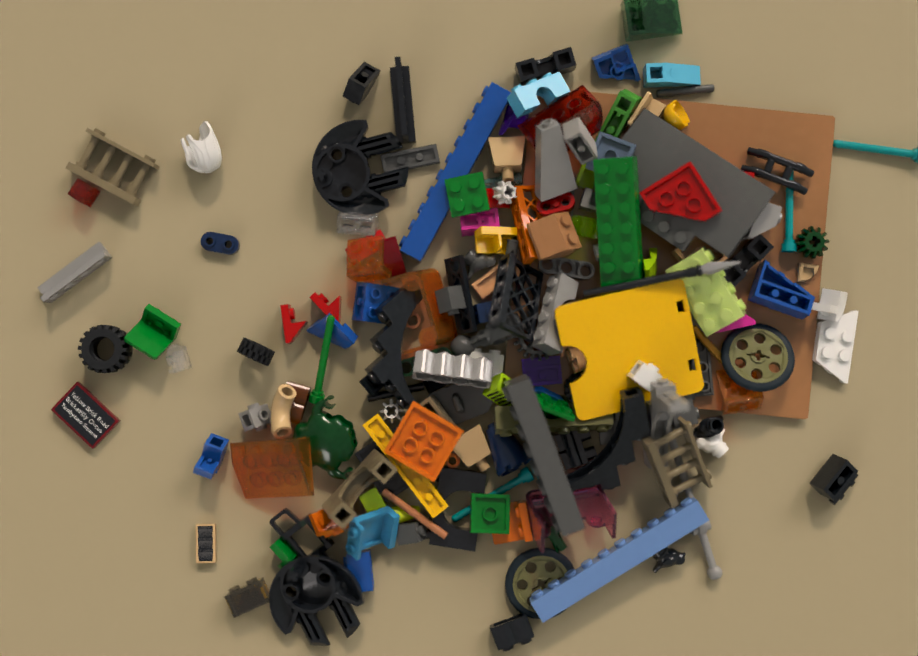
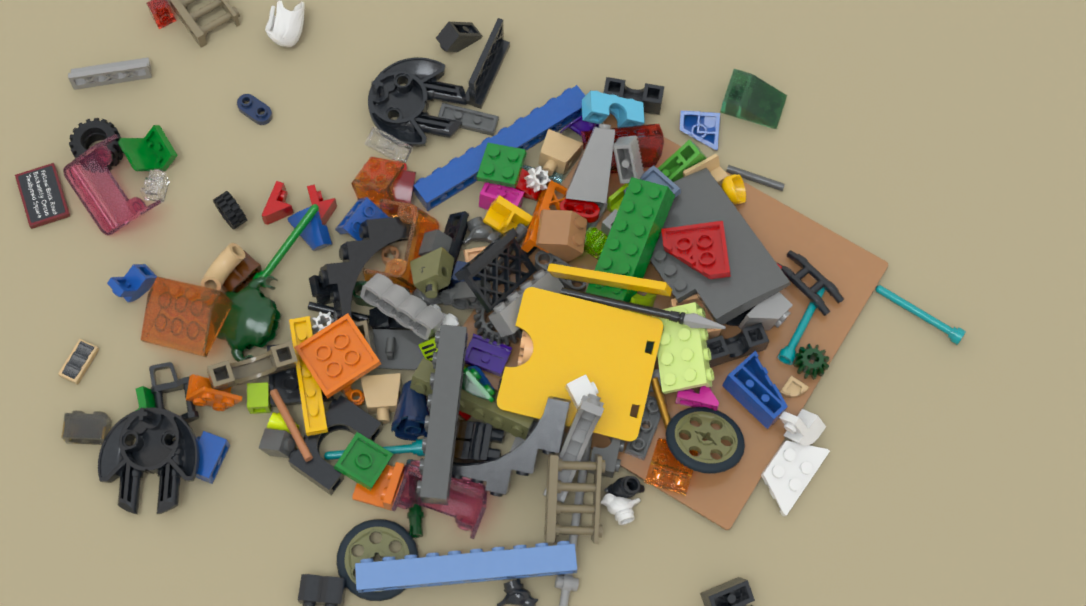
camera: 25 degrees right, 20 degrees down
(141, 393) = (100, 190): none -> clear pink windscreen
(255, 417) = (193, 267): light grey brick -> none
(372, 529) = (240, 417): dark azure panel -> none
(462, 328) = (432, 271): none -> olive torso
(622, 266) = (609, 279): none -> yellow tile
(670, 75) = (746, 155): medium azure slope -> none

